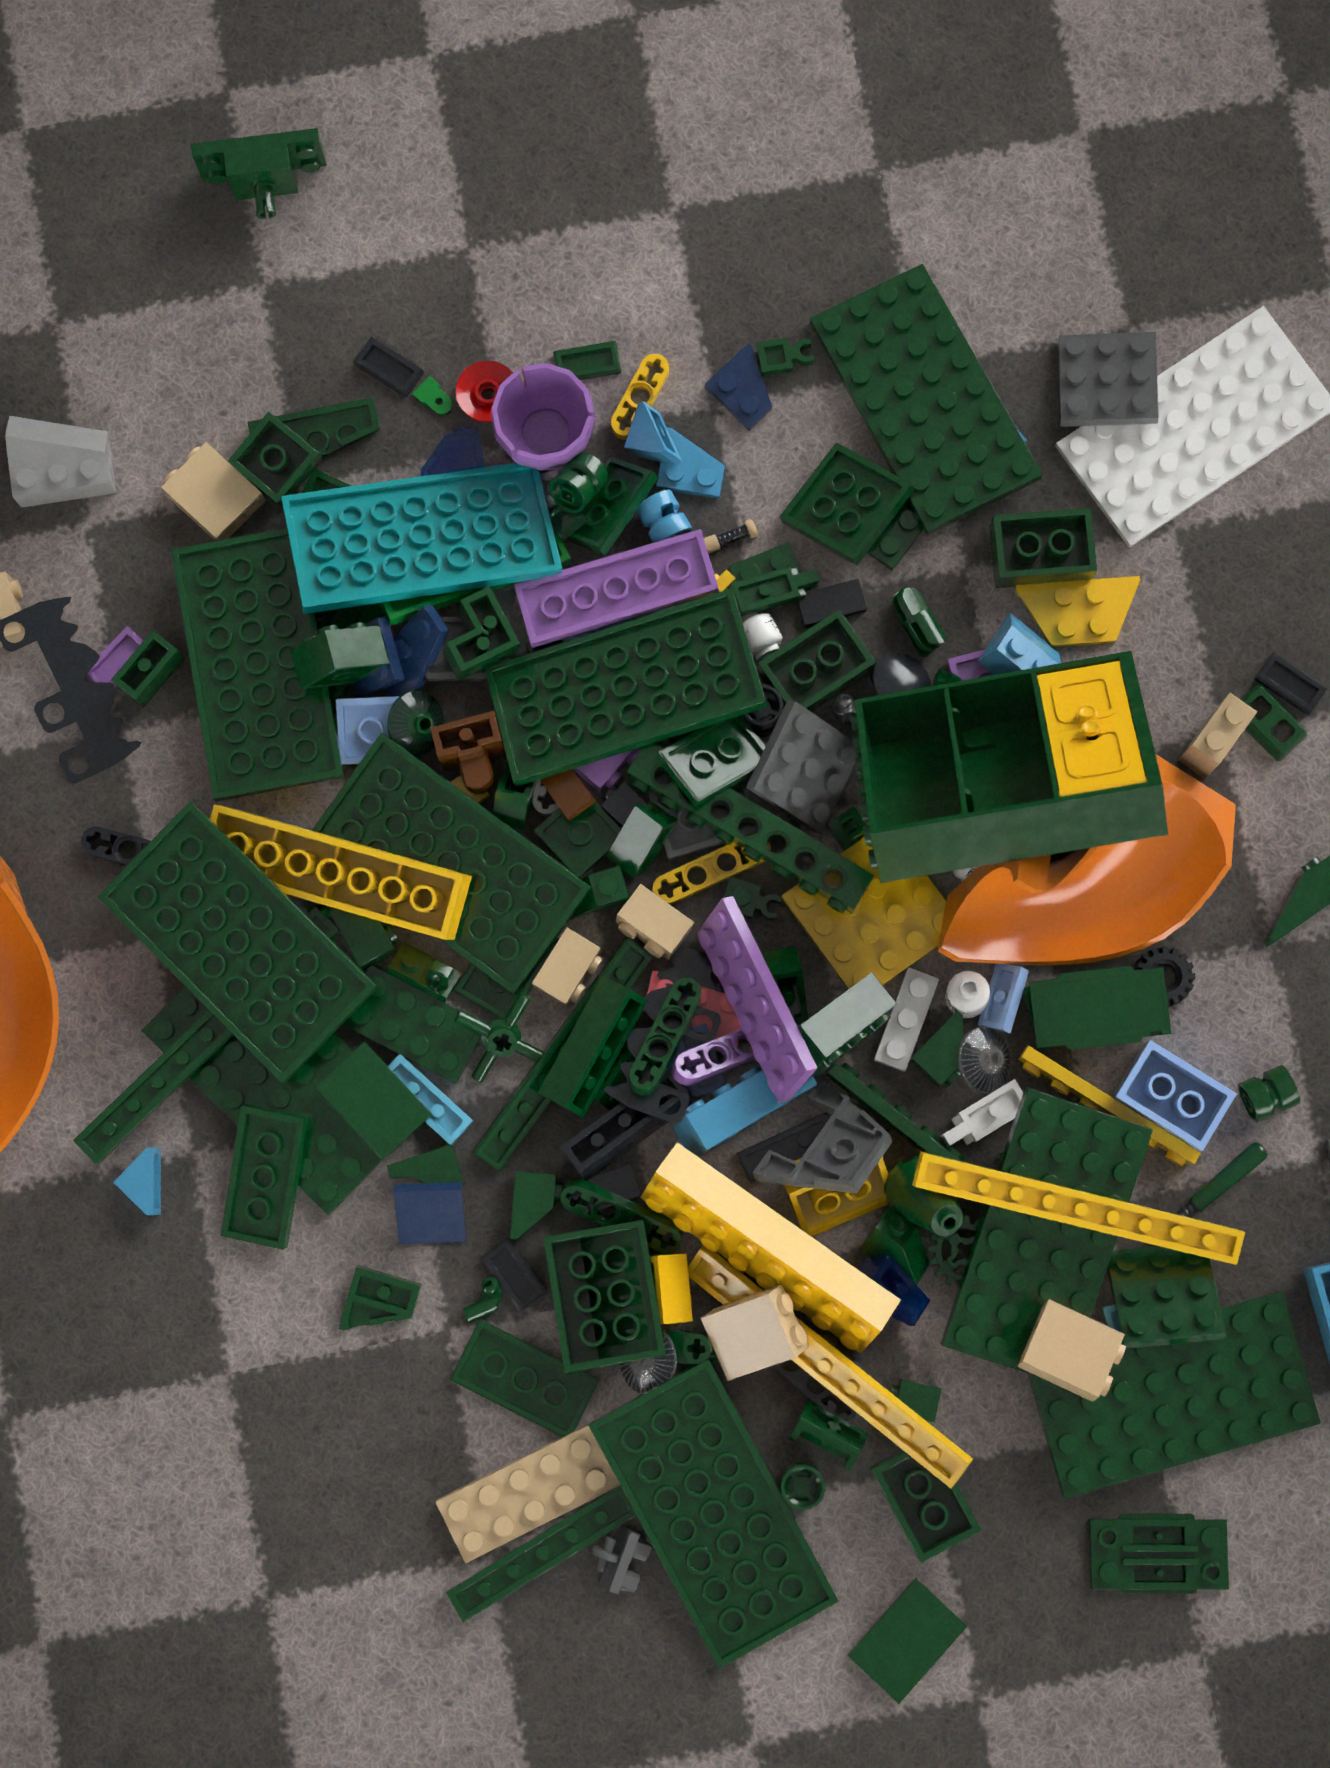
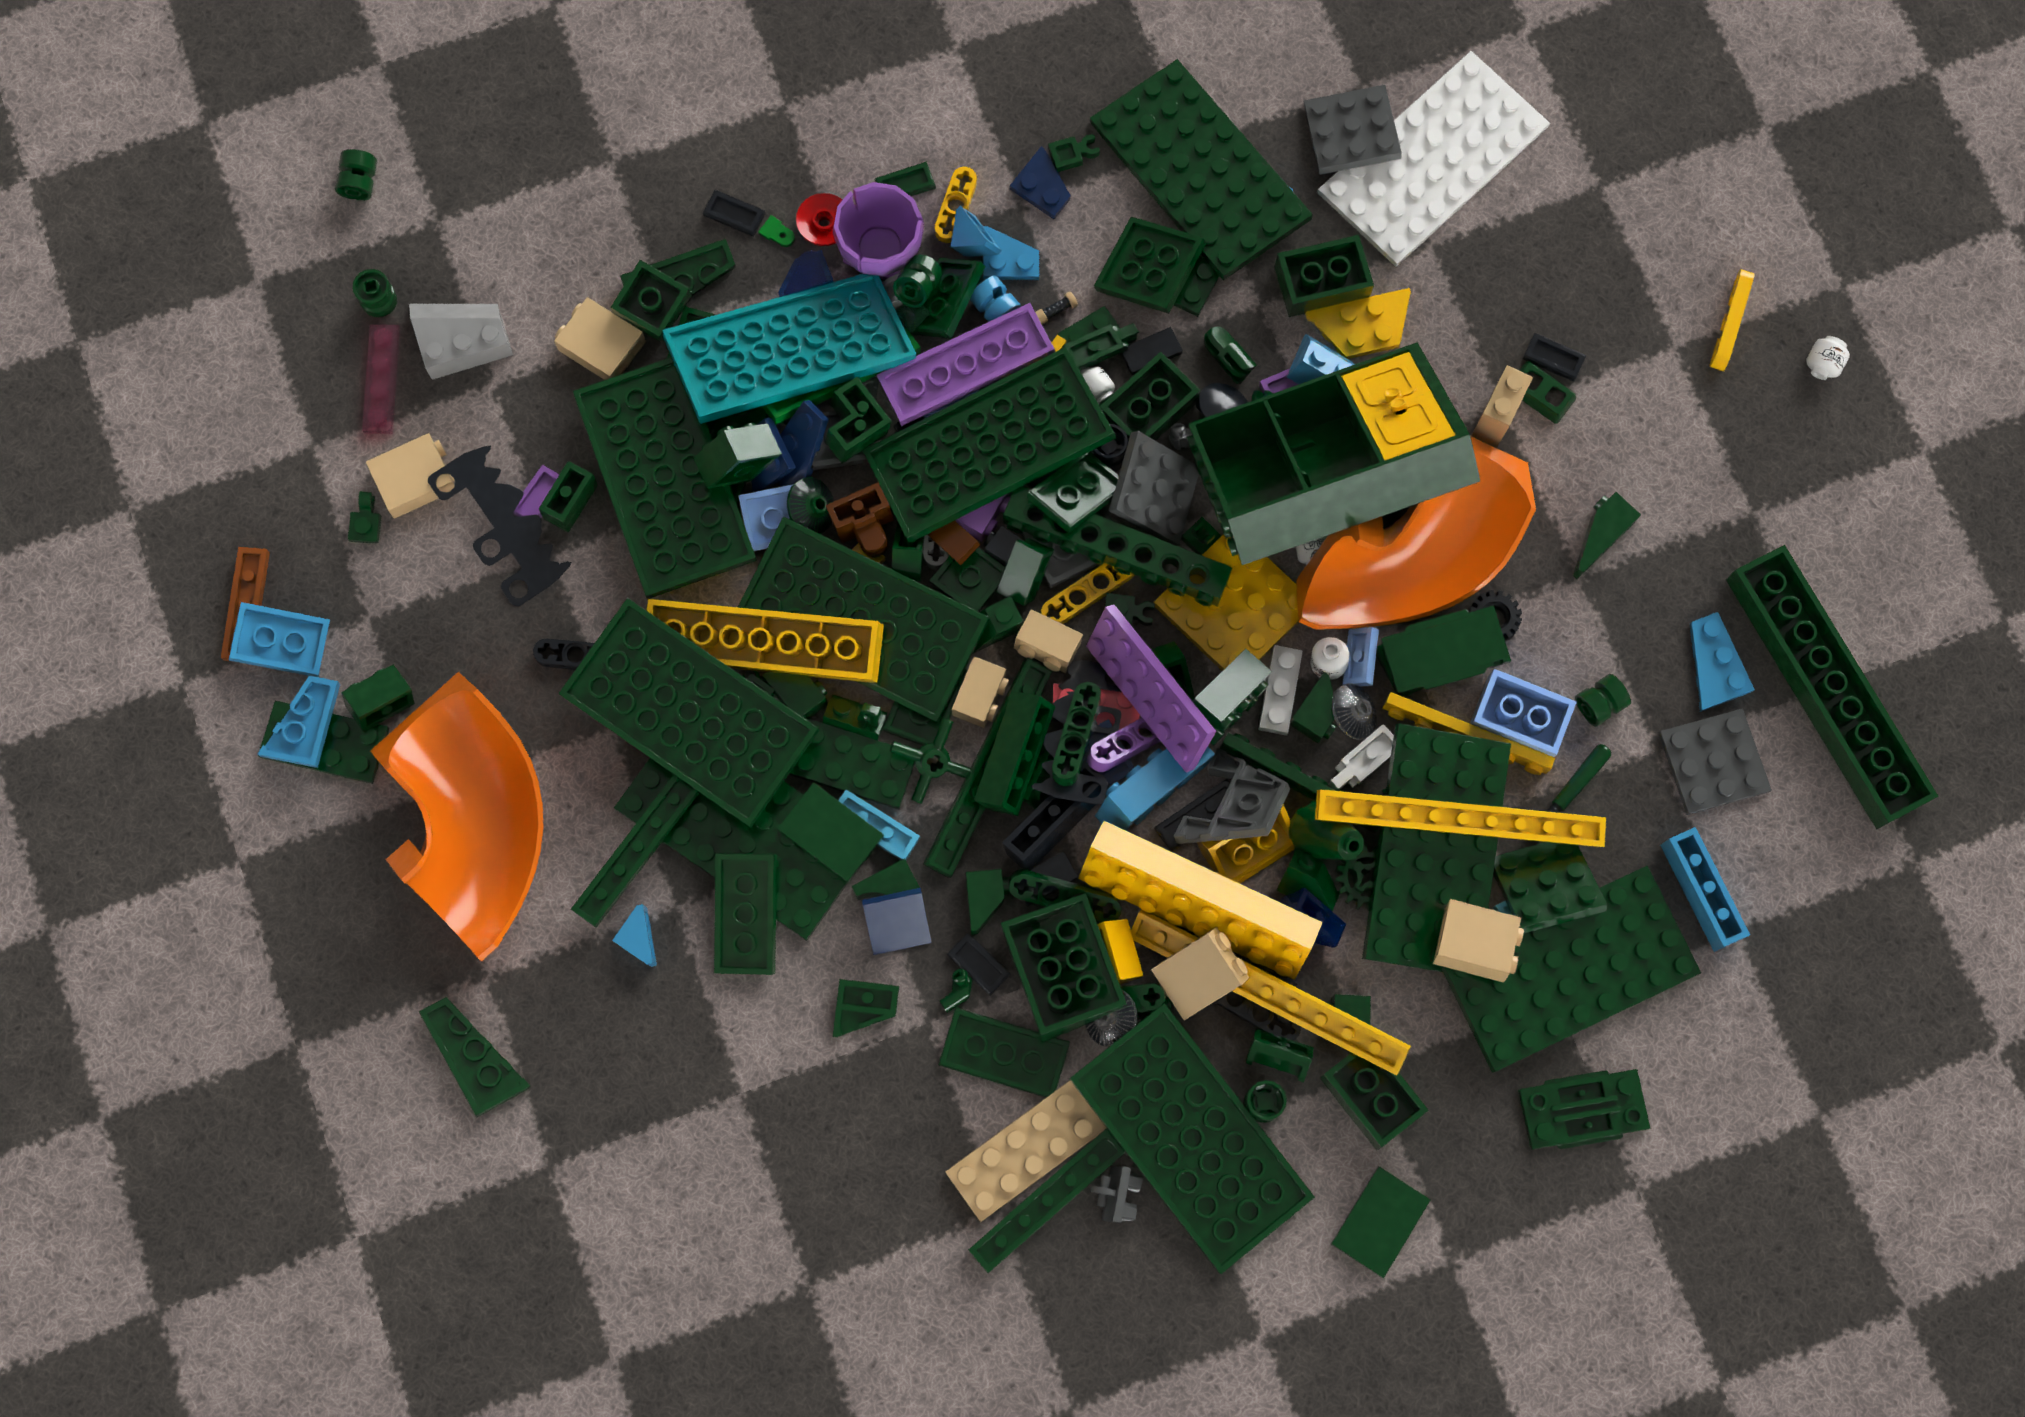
camera: 15 degrees left, 5 degrees down
(260, 164) = (595, 59): dark green brick -> none

